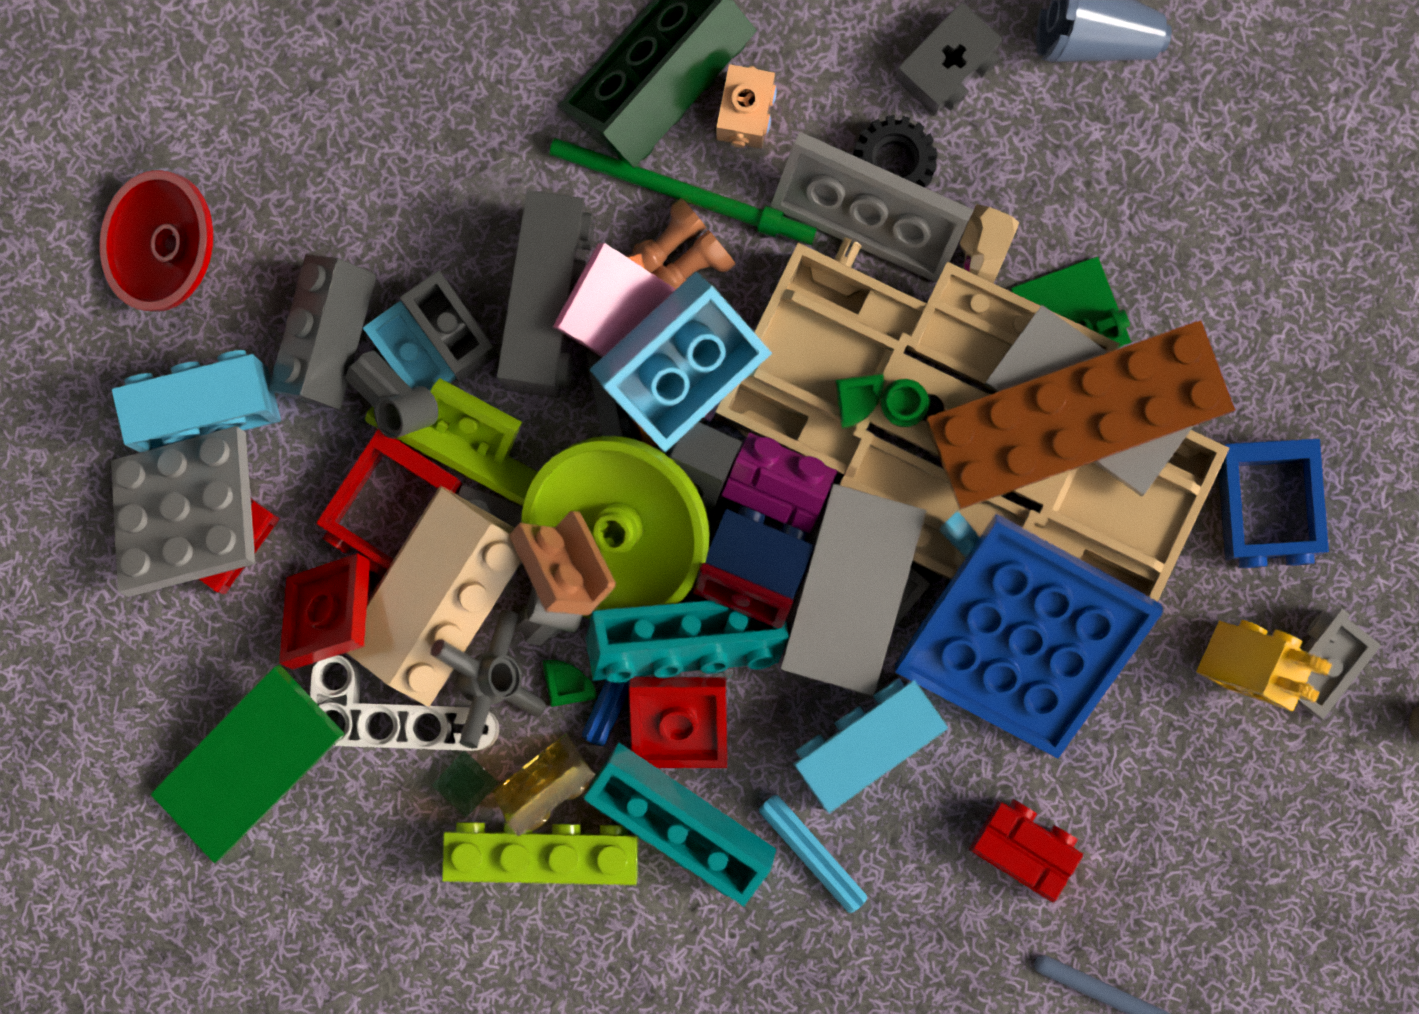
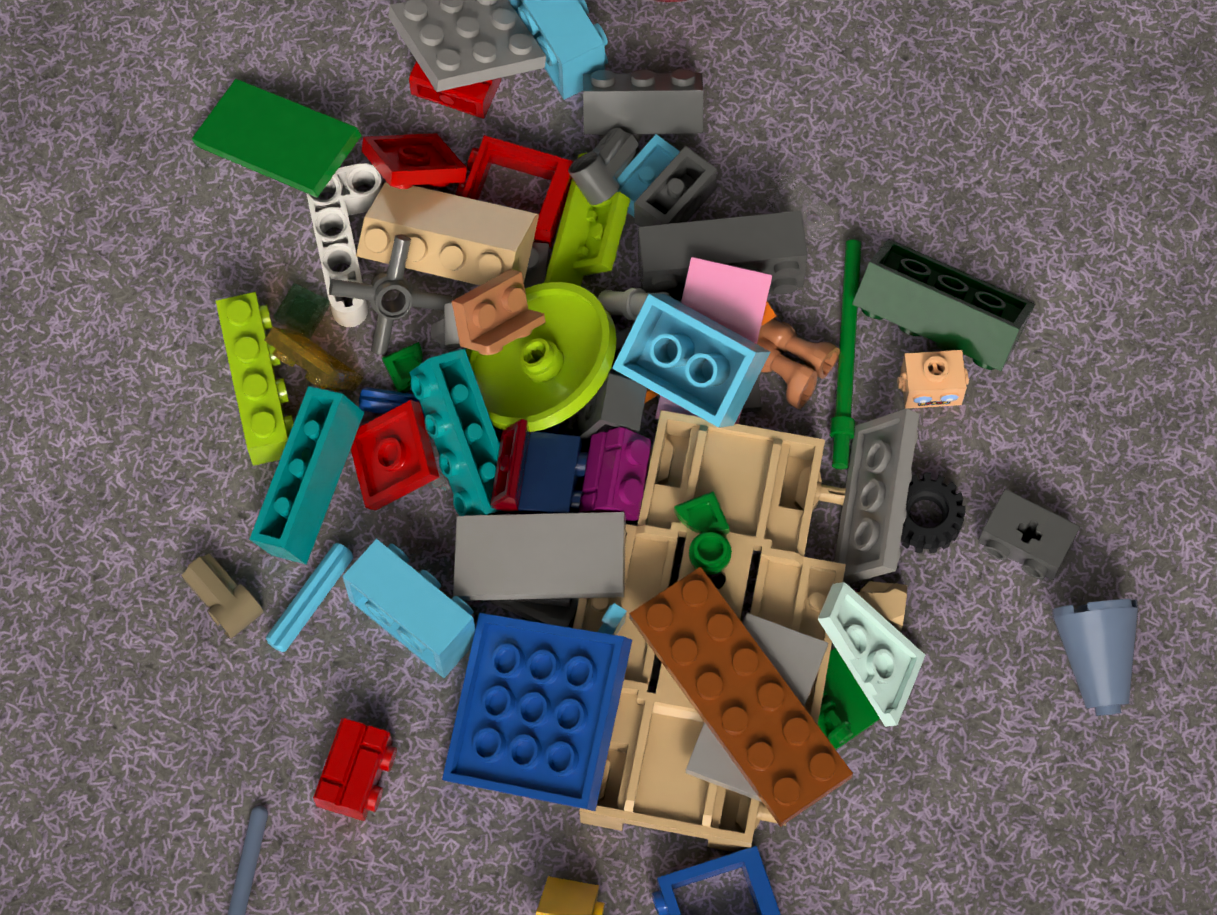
camera: 75 degrees right, 15 degrees down
(570, 408) = (624, 303): none -> white pin
(796, 947) = (226, 601): none -> dark tan piece
(1046, 262) = (873, 651): none -> light aqua wing

